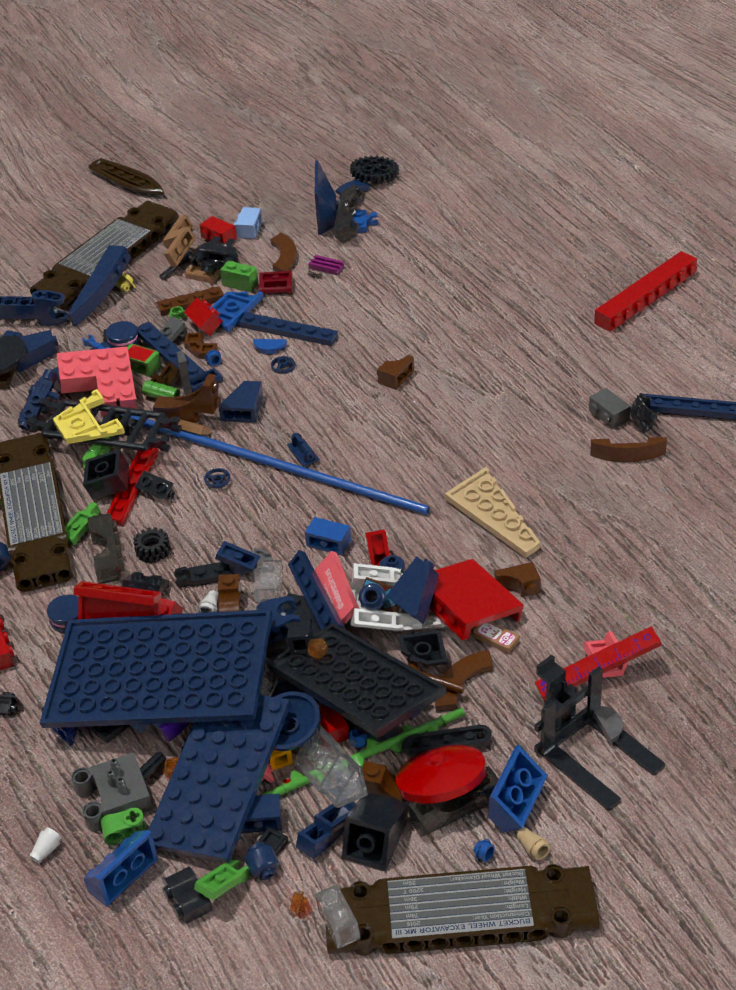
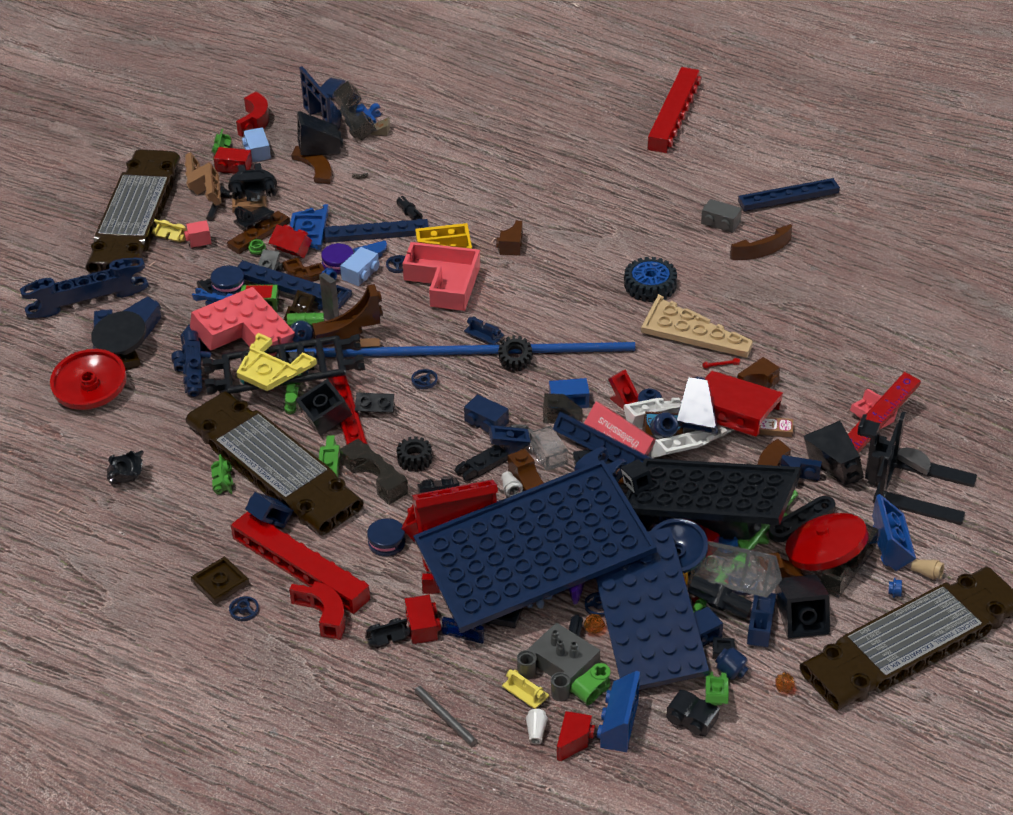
camera: 30 degrees left, 0 degrees up
(29, 701) = (421, 619): none -> red brick
(65, 805) = (524, 689): none -> light yellow hinge
(66, 868) = (574, 734): none -> red slope
(100, 282) = (161, 236): dark blue slope -> none
(126, 177) = (88, 133): dark brown piece -> none
(136, 287) = (198, 234): none -> coral brick
(145, 399) = (302, 325): none -> dark blue head
(186, 285) = (248, 219): none -> black hinge
(223, 212) = (221, 140): none -> bright green hinge
(233, 344) = (335, 255): none -> dark purple head
(239, 276) = (292, 196): bright green brick -> none
(239, 529) = (485, 412): none -> dark blue piece
(242, 403) = (396, 307): dark blue slope -> none
(244, 356) = (359, 266): none -> light blue brick
(269, 199) = (259, 113): none -> red arch
(269, 281) = (329, 189): dark red plate -> none
(298, 227) = (317, 136): none -> black slope
(298, 787) = (719, 597): none -> black piece
(309, 385) = (447, 269): none -> coral piece
(309, 543) = (558, 403): none -> clear smoke slope
(312, 489) = (511, 344): none -> black tyre
(317, 648) = (664, 475): clear orange plate -> none
(326, 264) = (358, 164): magenta tile -> none
(330, 316) = (409, 208): none -> black pin
(331, 356) = (448, 235): none -> yellow wedge
(337, 916) = (838, 673): clear brick -> none
(367, 236) = (382, 127): none -> dark tan slope
(374, 169) = (339, 64): black gear -> none
(424, 648) = (734, 450): black slope -> none
(483, 687) = (809, 468): none -> dark blue slope
(492, 449) = (649, 278): none -> black wheel
(513, 557) = (736, 361): none -> red hinge
(523, 685) = (836, 452): none -> black slope
(642, 414) = (755, 210): black hair -> none

